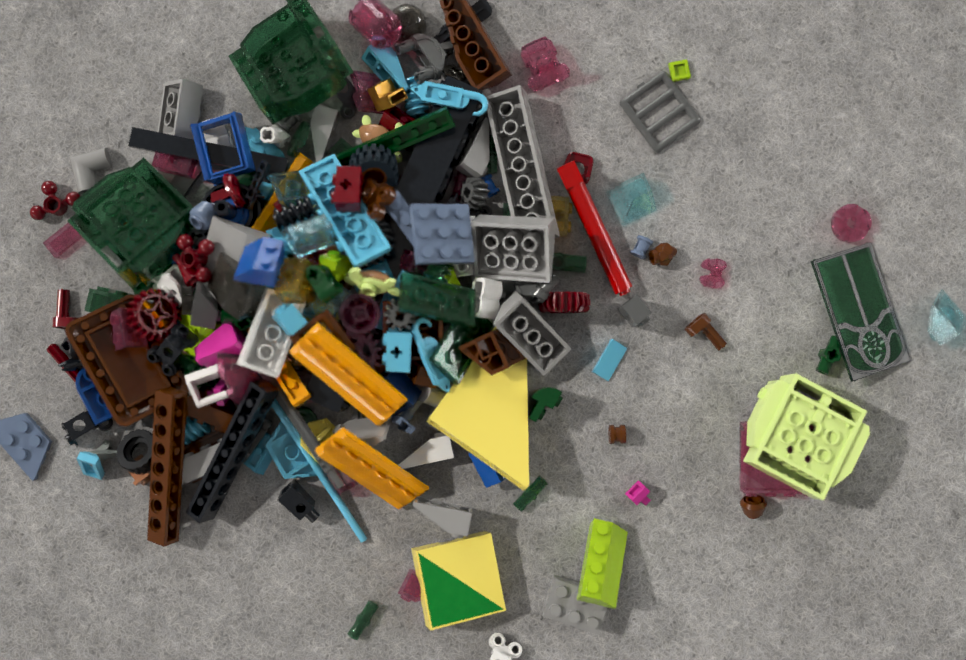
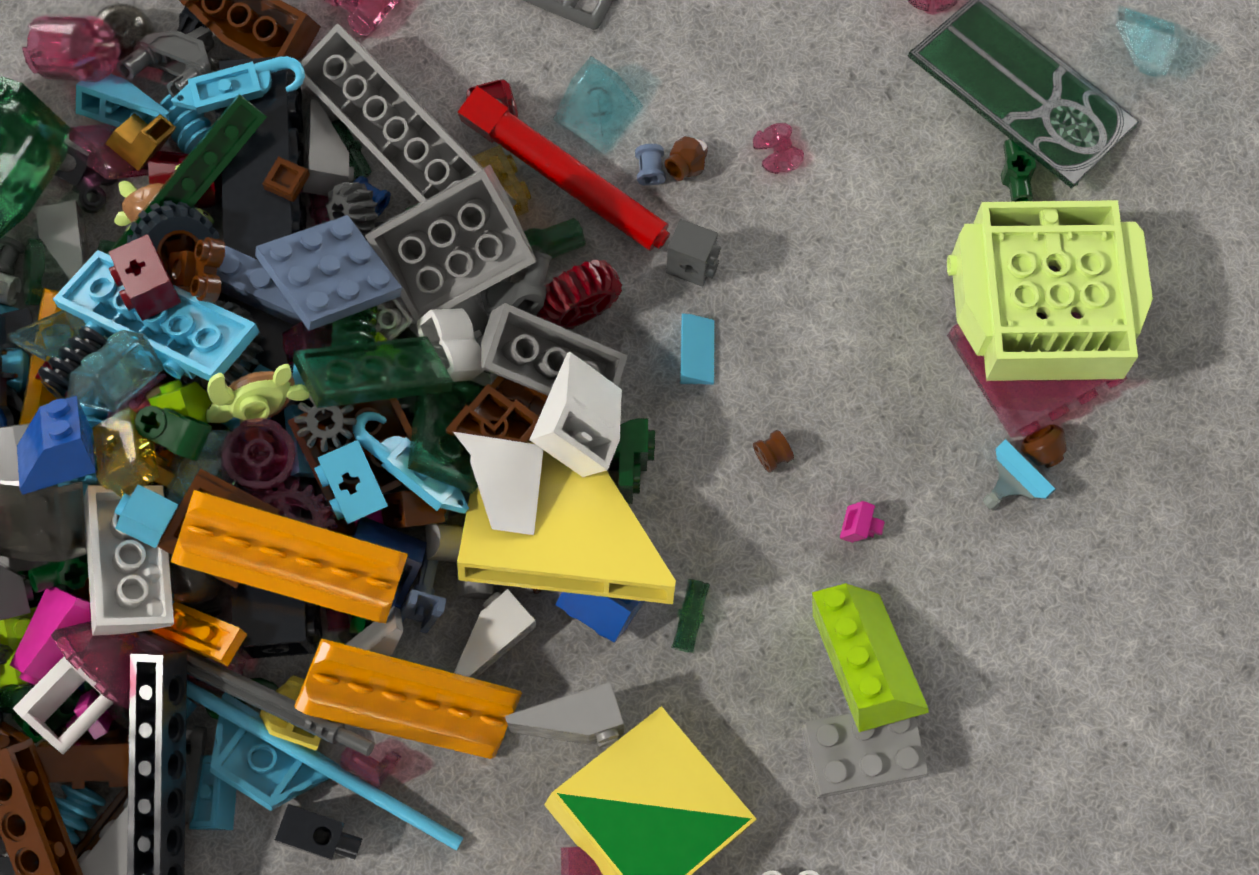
camera: 30 degrees left, 15 degrees down
(448, 163) = (286, 179): none -> reddish brown tile
(474, 389) = (506, 479): none -> white sticker
(529, 375) = (580, 418): none -> white slope
(702, 323) = (806, 224): reddish brown piece -> none
(729, 514) = (1016, 478): none -> piece

